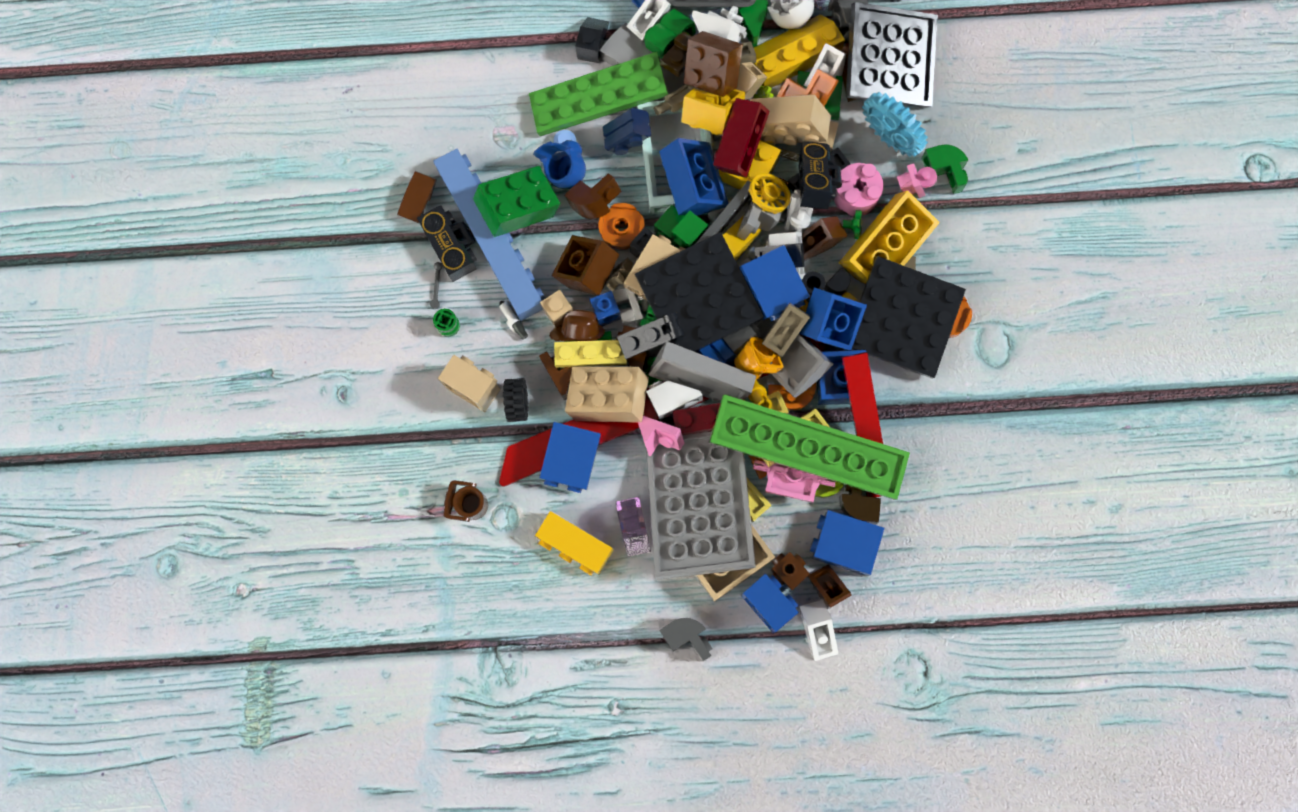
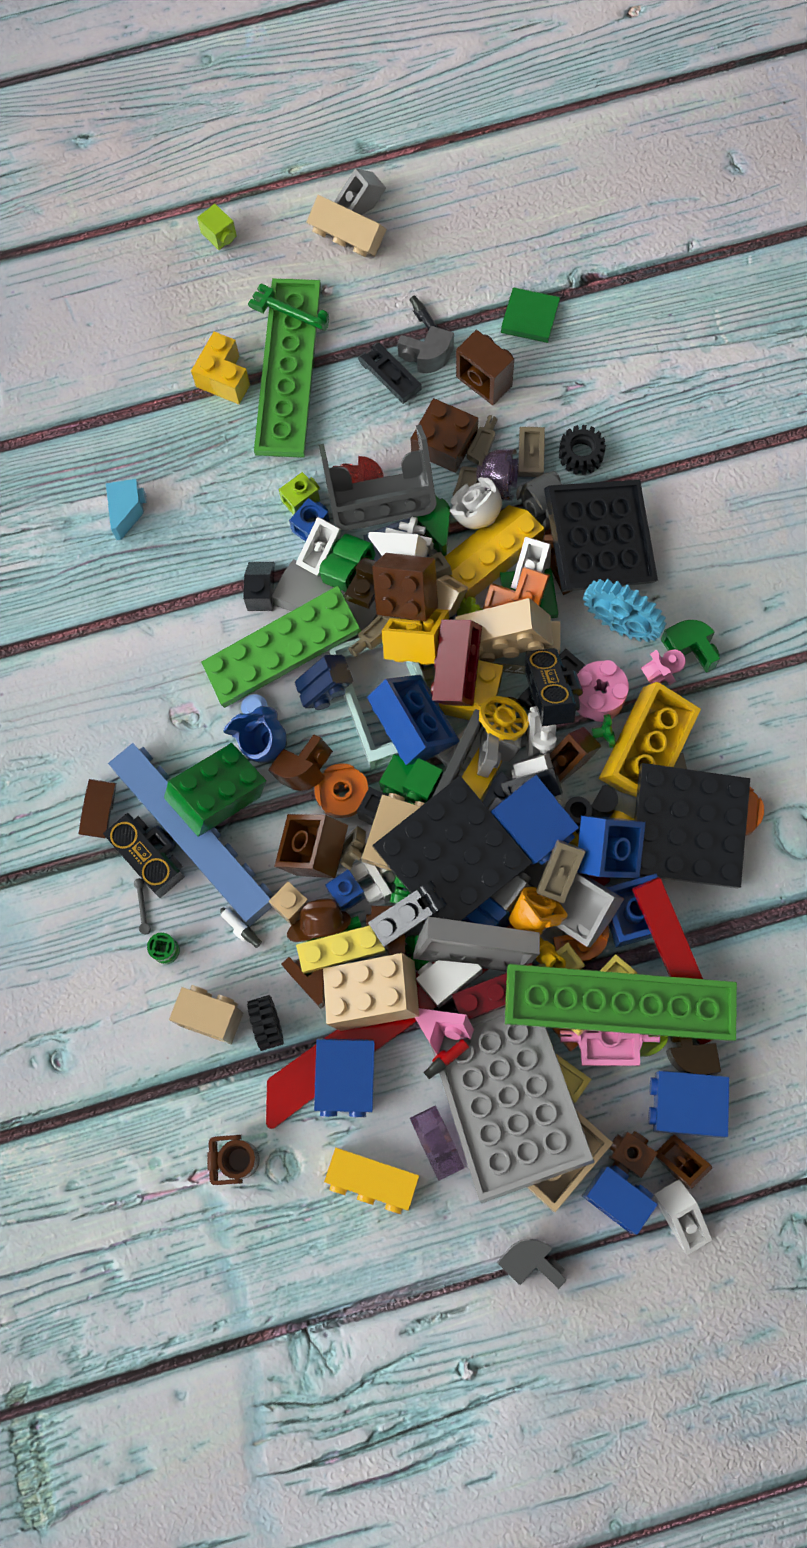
camera: 15 degrees left, 5 degrees down
(656, 460) = (444, 1058): none -> piece

